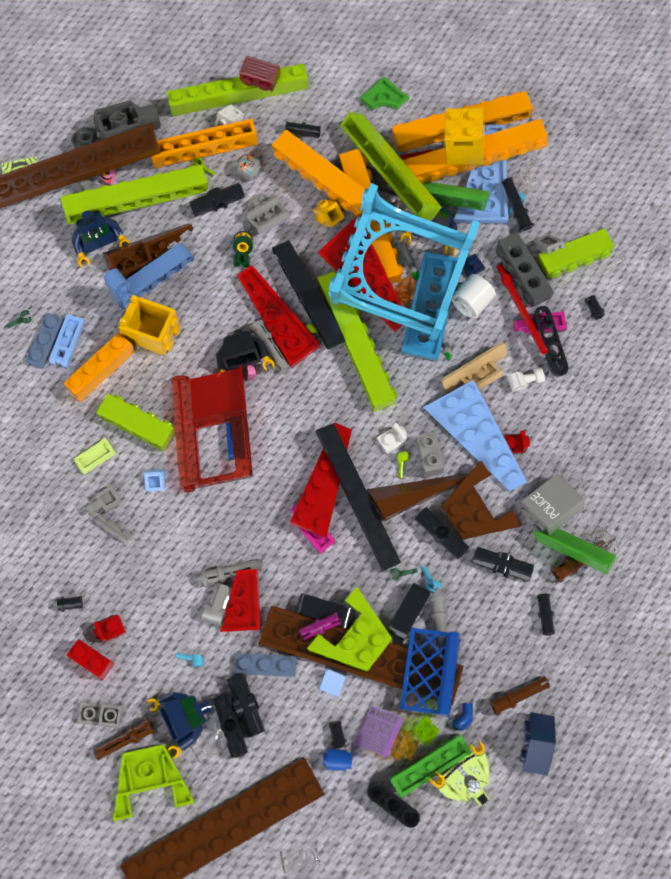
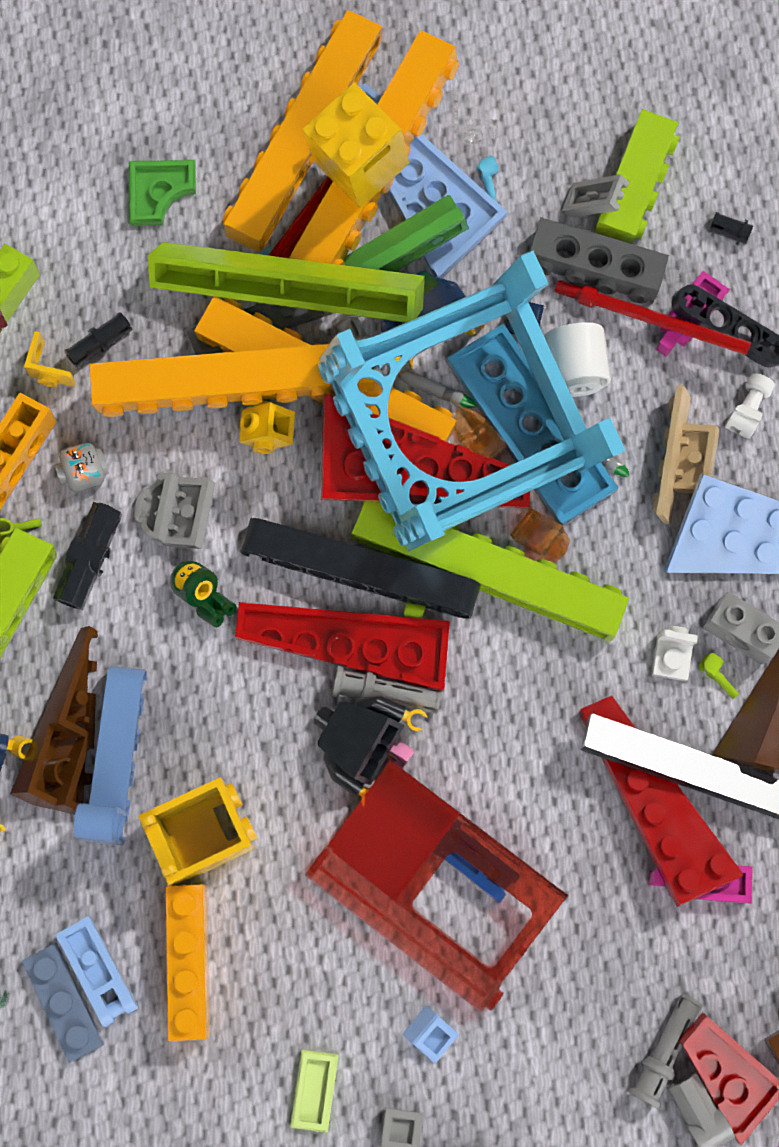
camera: 55 degrees left, 5 degrees up
(136, 422) = (322, 985): lime brick -> none
(270, 124) = (45, 375): none -> yellow bracket
(389, 349) = (541, 536): none -> clear orange bracket
(520, 213) = (511, 187): black pin -> none

